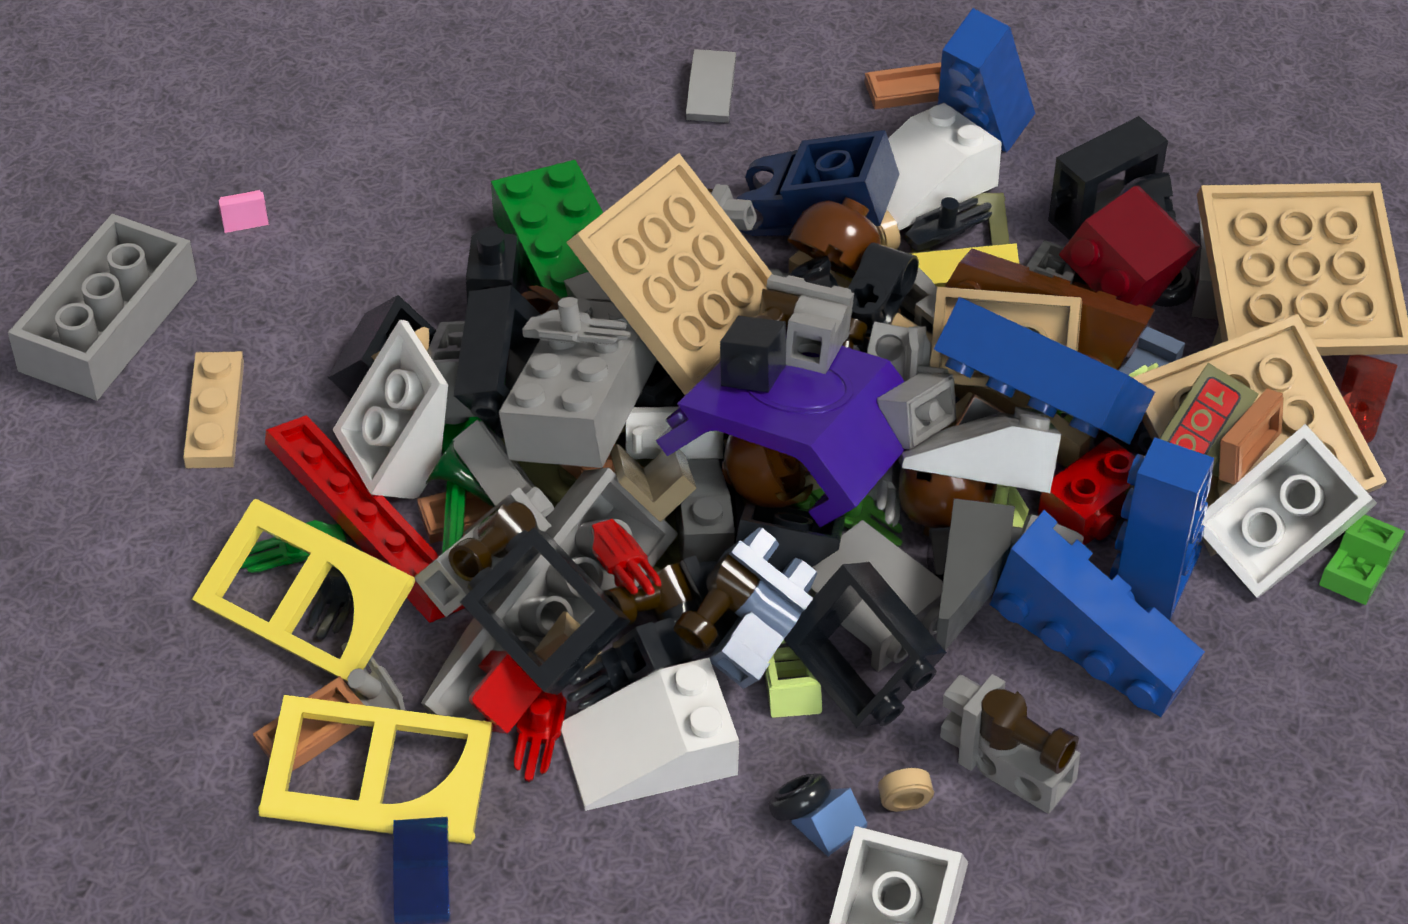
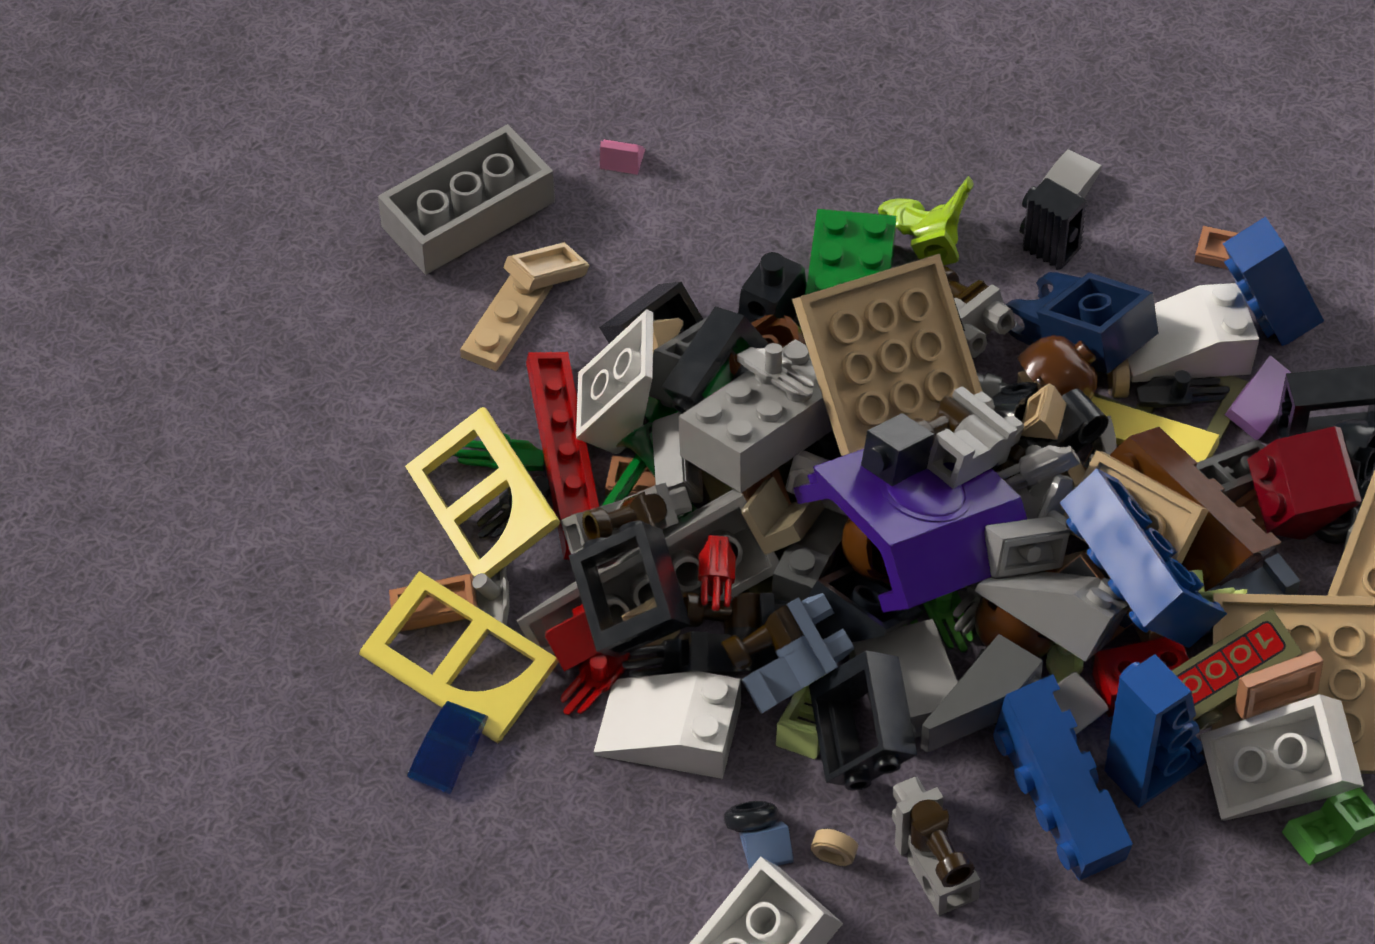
camera: 30 degrees right, 5 degrees up
(231, 340) = (546, 266): none -> tan tile
(615, 159) = (934, 229): none -> lime animal
(730, 114) = (1053, 222): none -> black brick
(858, 273) = (1044, 413): none -> tan slope
(889, 322) = (1039, 465): none -> light grey piece
(1025, 201) = (1259, 399): none -> medium lavender tile

